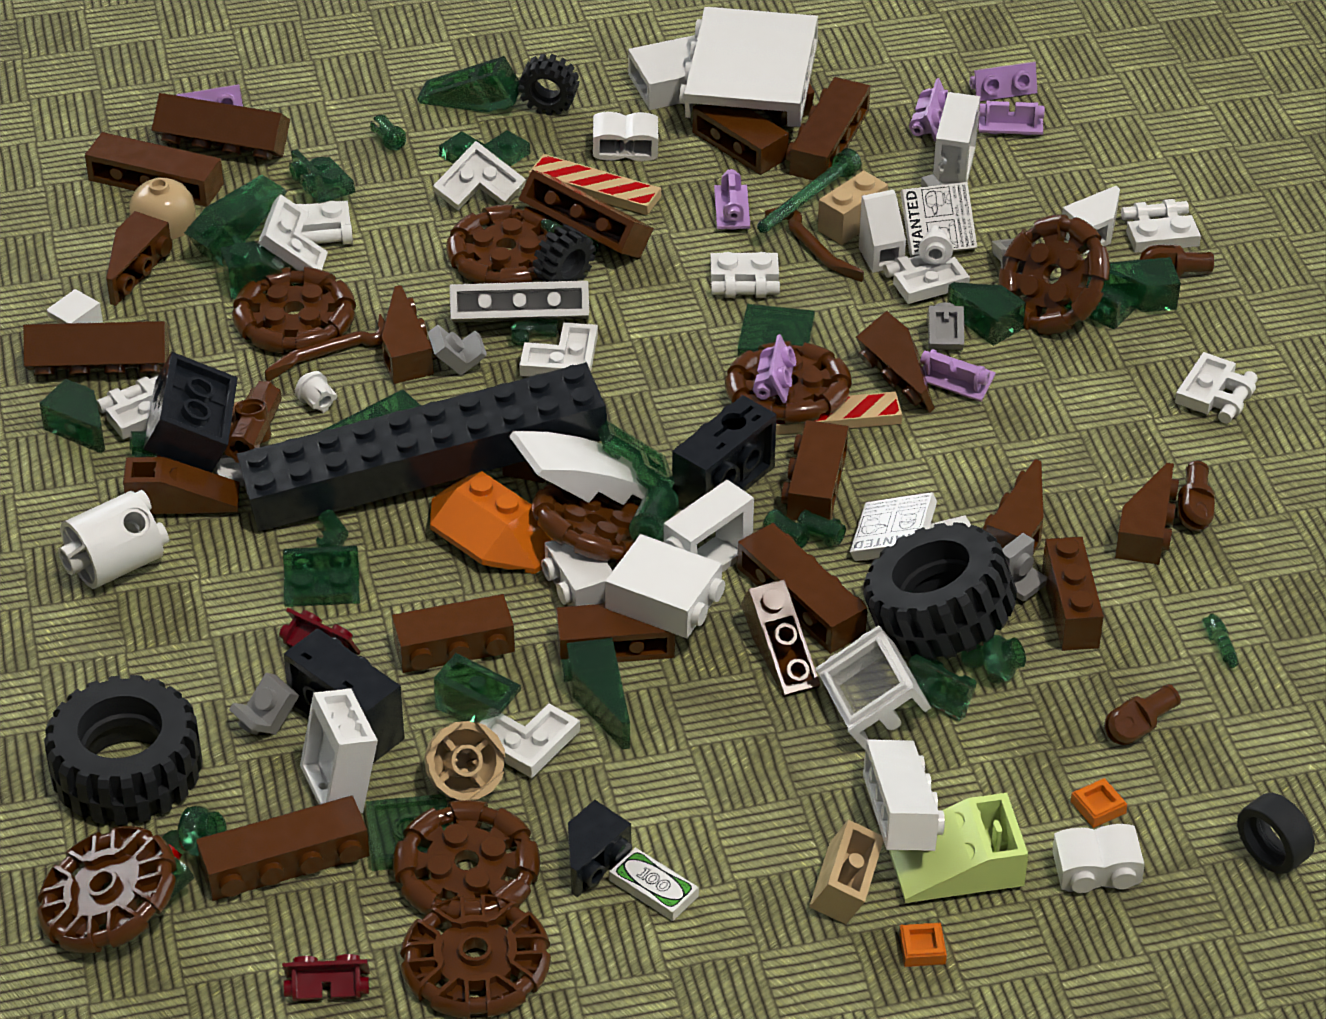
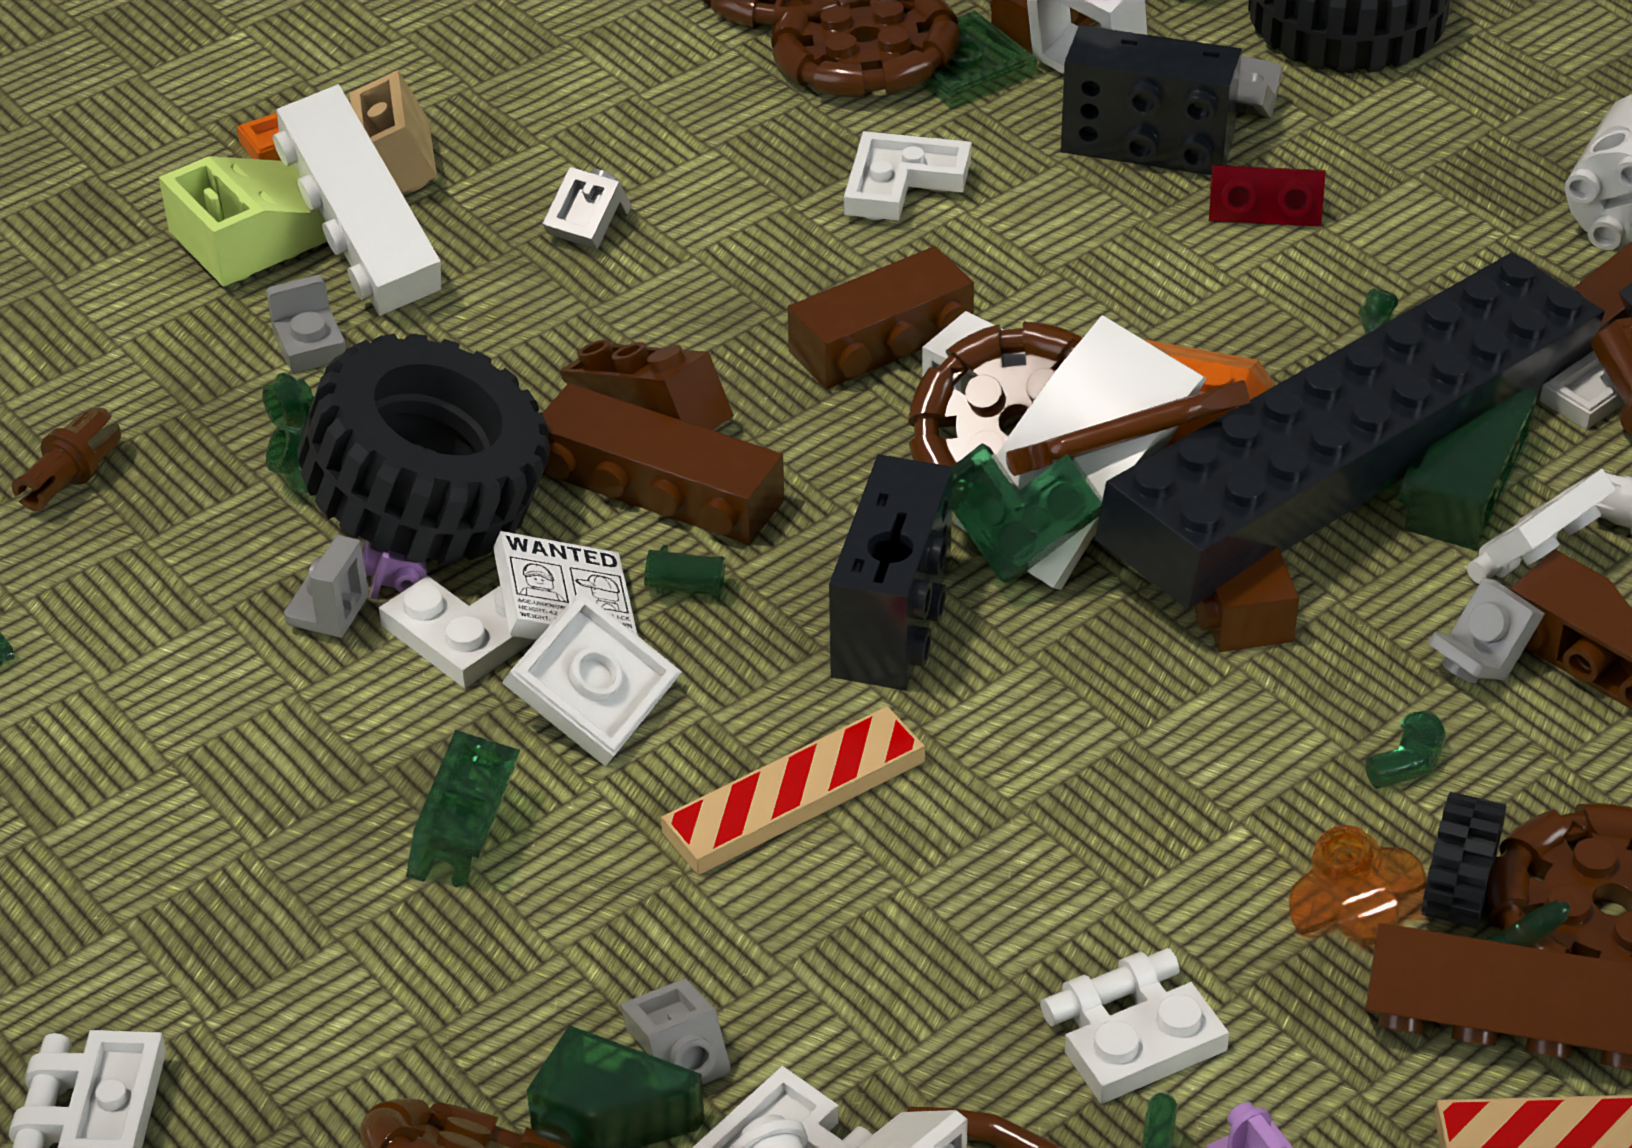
camera: 155 degrees right, 0 degrees up
(321, 576) = (1340, 266): clear green bracket -> none
(379, 367) = (1537, 531): none -> white plate
(465, 760) = (948, 96): tan cylinder -> none
(468, 628) = (1096, 246): reddish brown brick -> none
(472, 690) = (996, 163): clear green slope -> none
(519, 301) = (1463, 749): white brick -> none
(575, 347) = (1302, 714): white plate -> none
(575, 435) = (1127, 427): none -> reddish brown piece
(595, 844) = (725, 90): black slope -> none
(598, 686) = (836, 236): clear green slope -> none
(609, 287) = (1356, 891): none -> clear orange plate
(654, 884) = (633, 95): white tile -> none
(655, 508) = (923, 412): clear green brick -> none
(664, 586) = (829, 318): white brick -> none
(721, 510) = (829, 445): white window -> none
(737, 782) = (586, 206): none -> bracket
(766, 322) = (988, 915): clear green tile -> none
(775, 371) = (897, 724): lavender hinge -> none
(797, 531) = (739, 549): clear green pin -> none
(816, 470) = (745, 649): reddish brown brick -> none
(817, 387) = (899, 762): reddish brown plate -> none
(869, 683) = (458, 308): white window -> none
(893, 351) = (717, 901): reddish brown slope -> none
(902, 477) = (592, 677): none -> white tile
(956, 375) = (635, 931): lavender hinge -> none
(963, 764) = (304, 323): none -> light grey bracket
(994, 712) = (287, 400): none -> clear green plate
(998, 441) = (461, 806): none -> clear green hinge
(1020, 510) = (364, 681): reddish brown slope -> none
(1072, 593) = (232, 586): reddish brown brick -> none
(1098, 802) = (100, 353): orange tile -> none
(1098, 858) = (74, 268): white brick -> none
(1144, 519) = (150, 765): reddish brown slope -> none
(1196, 498) = (69, 837): reddish brown arm -> none

